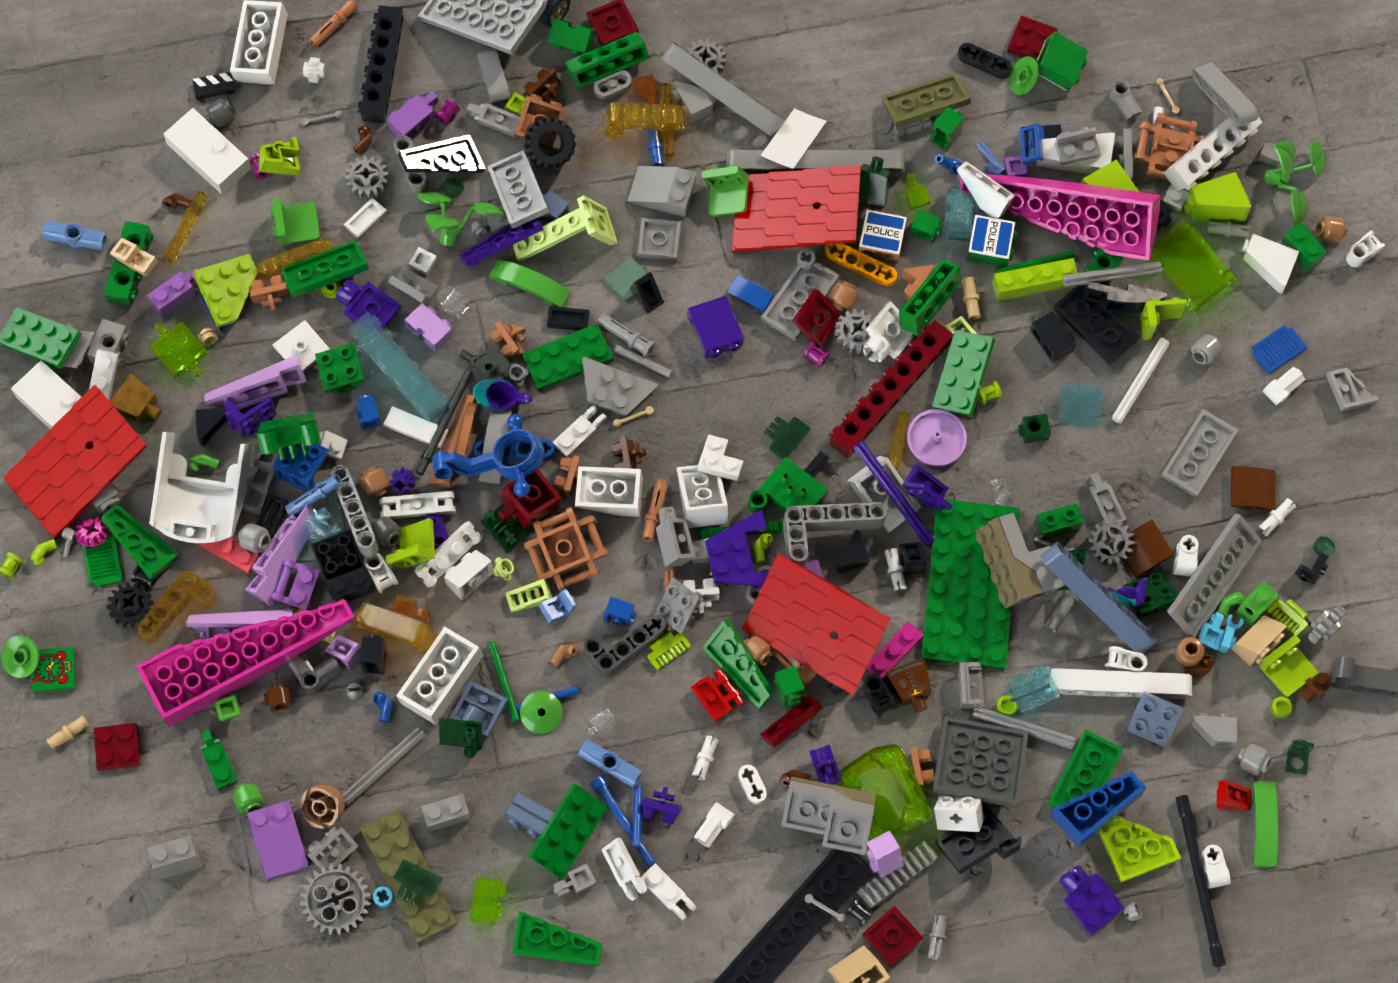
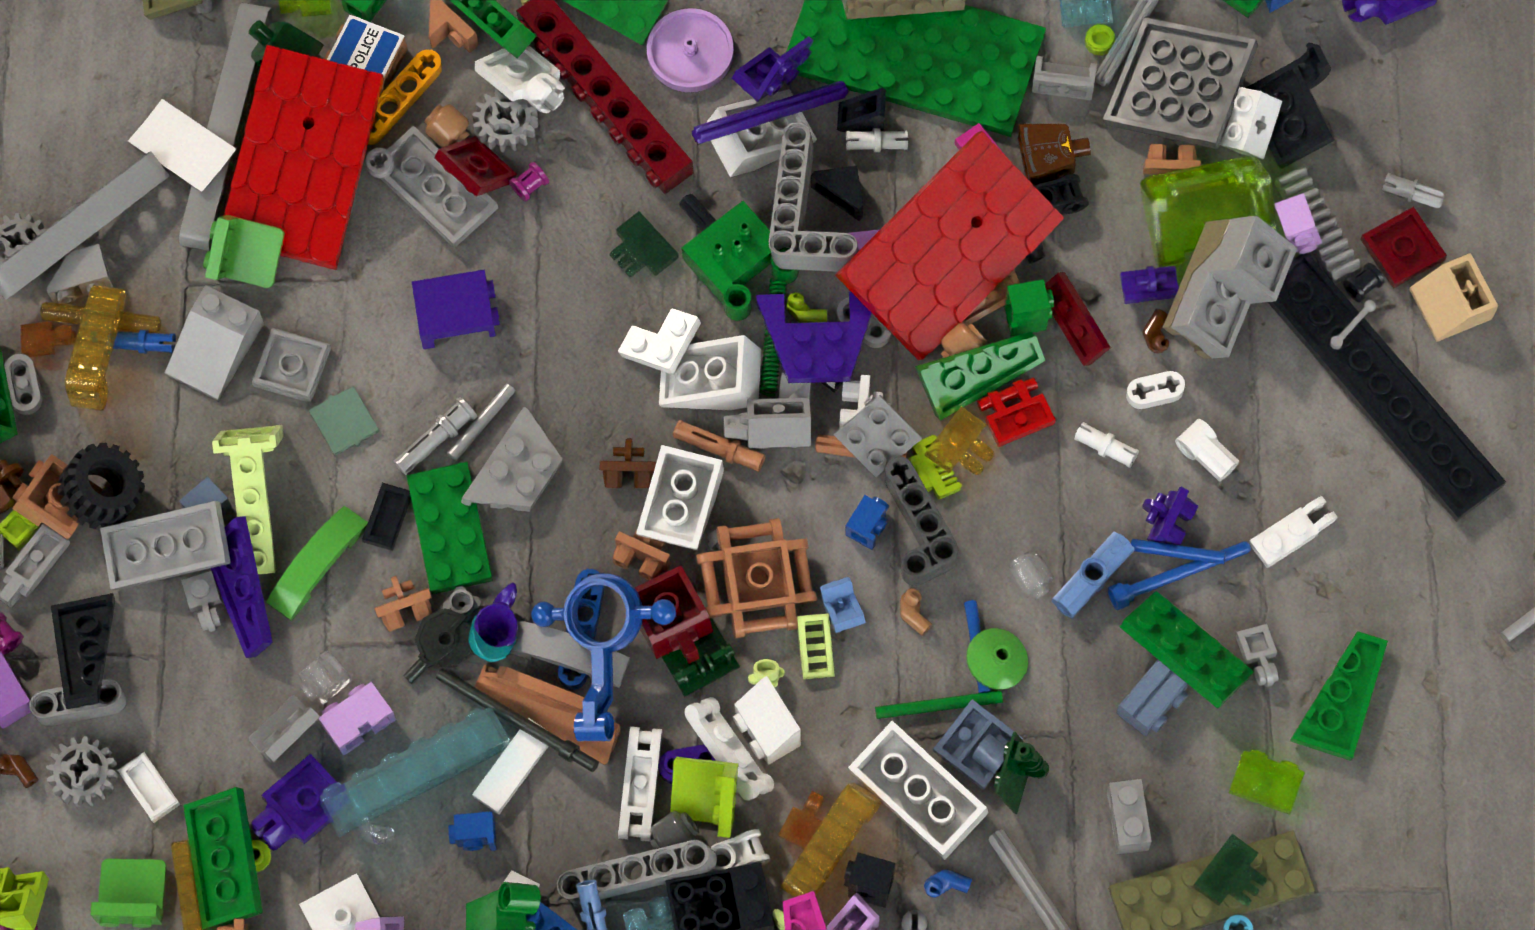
camera: 75 degrees left, 0 degrees up
(340, 368) = (395, 859): green plate -> none
(374, 482) = (590, 839): medium nougat head -> none
(403, 480) = (597, 795): dark purple gear -> none
(422, 261) = (244, 710): white plate -> none
(448, 225) = (205, 658): bright green plant -> none
(453, 187) = (132, 645): clear green tile -> none
(578, 432) = (574, 533): white hinge -> none
(624, 868) = (1250, 583): white hinge -> none
(647, 292) = (374, 394): black slope -> none
(649, 411) = (560, 429): tan hinge -> none
(687, 658) = (956, 439): none -> clear yellow hinge
(750, 294) = (412, 252): blue slope -> none
(899, 438) = (678, 97): clear yellow axle -> none

